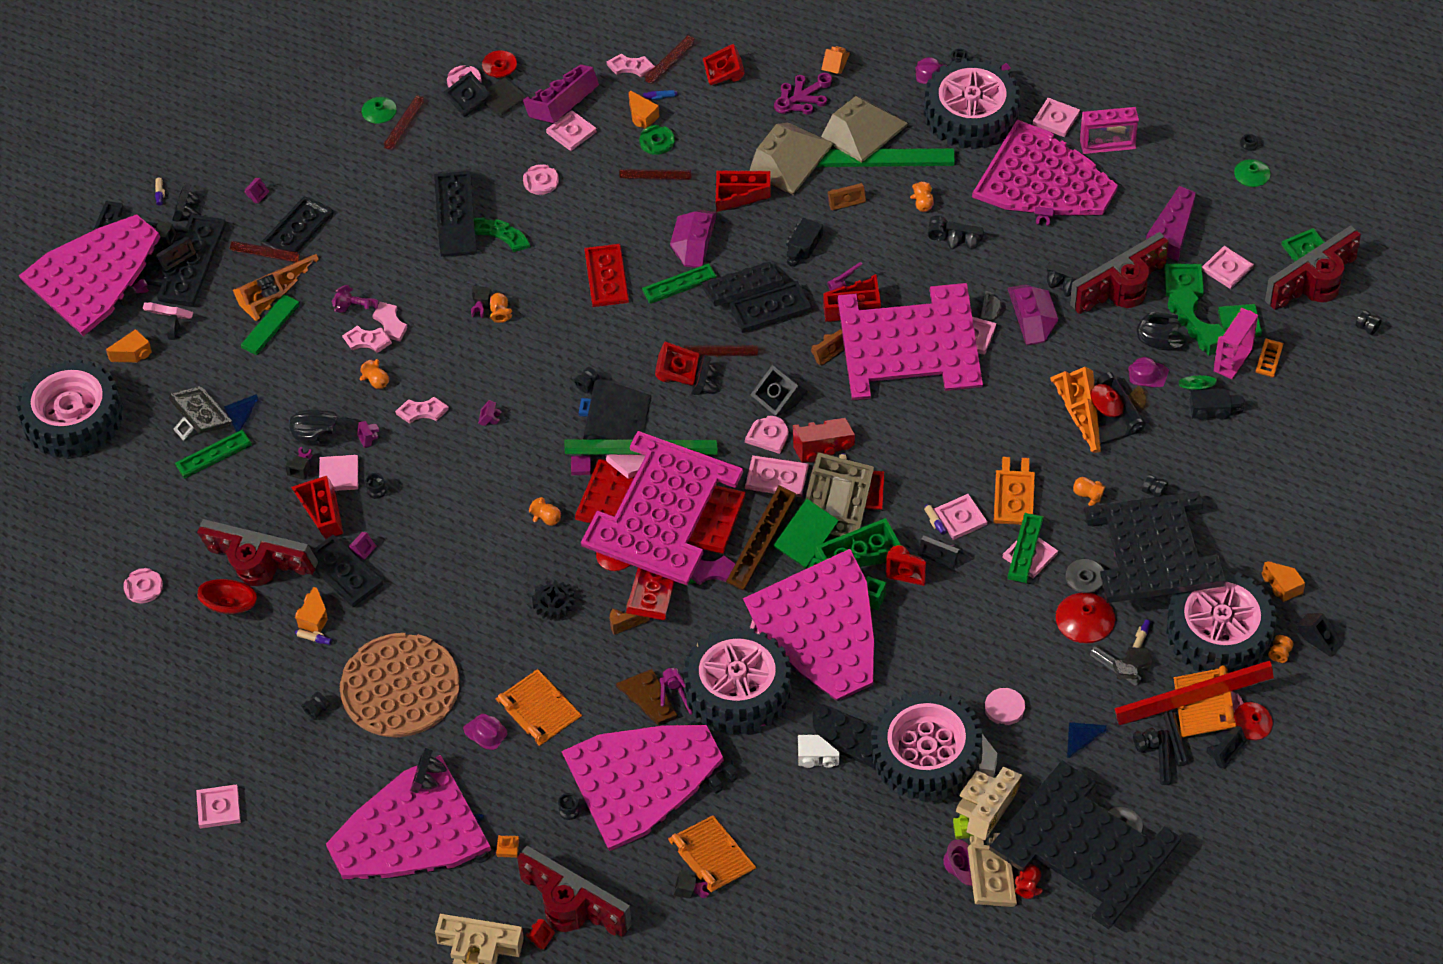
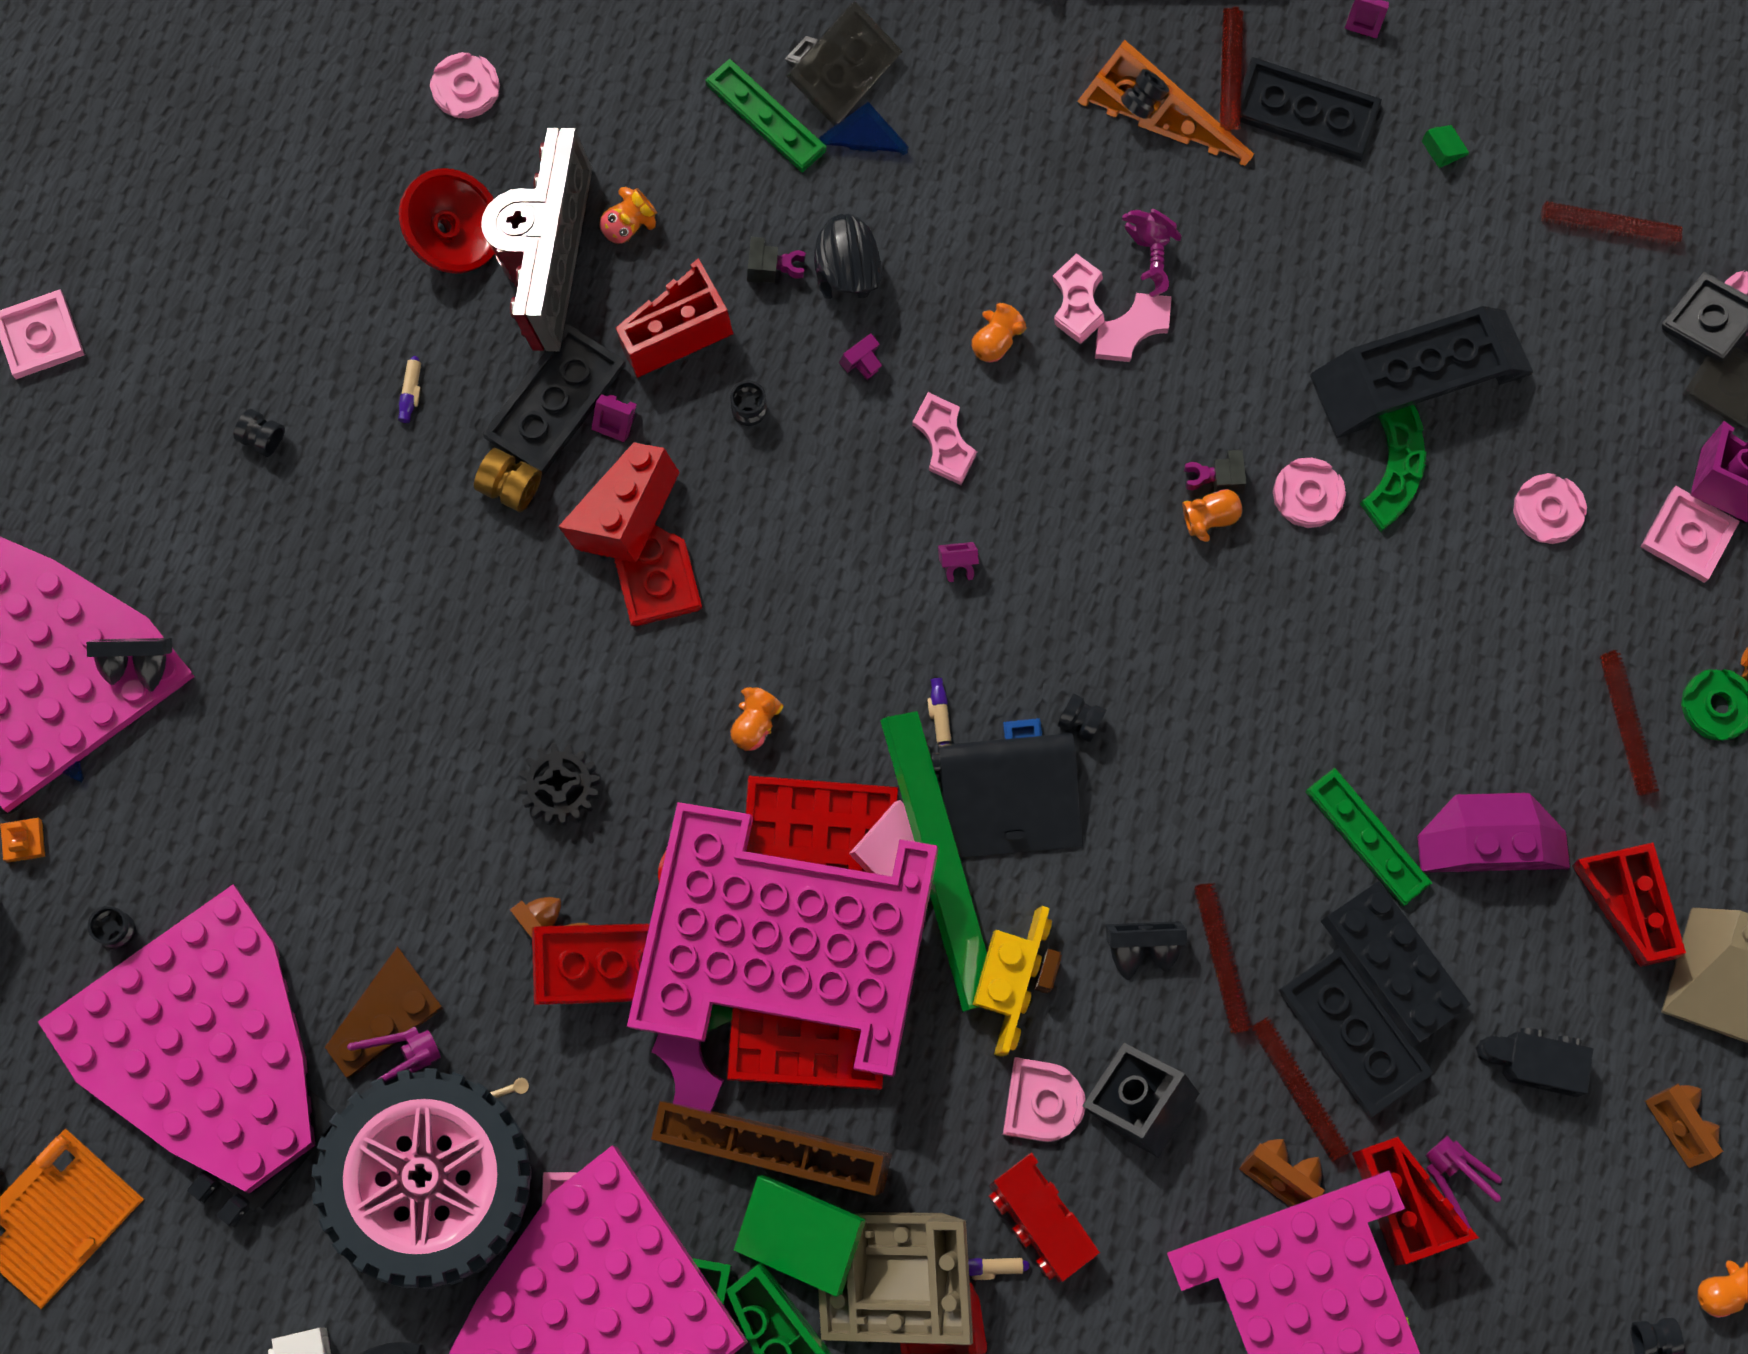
camera: 70 degrees right, 20 degrees up
(251, 518) = (625, 218): none -> animal
(270, 324) = (1072, 126): green tile -> none
(312, 614) = (453, 375): orange slope -> none
(338, 177) = (1444, 145): none -> green slope
(341, 471) = (770, 334): bright pink tile -> none
(379, 110) = (1625, 183): green dish -> none
(379, 597) = (503, 478): none -> pearl gold wheel
(399, 685) = (335, 563): nougat tile -> none
(415, 545) = (623, 504): none -> red wedge
(453, 543) = (660, 580): none -> red tile
(486, 731) = (262, 738): magenta piece -> none
(501, 269) = (1303, 504): none -> bright pink tile
(539, 707) = (330, 819): orange window -> none
(559, 438) = (938, 711): none -> tan piece
(580, 465) = (877, 758): magenta tile -> none
(606, 275) = (1350, 691): red tile -> none
(676, 364) = (1159, 881): red slope -> none
(707, 416) = (1048, 971): none -> reddish brown tile
(707, 430) = (1007, 976): none -> yellow bracket
(769, 473) = (943, 1142): bright pink tile -> none
(804, 329) = (1302, 1092): none -> clear red axle

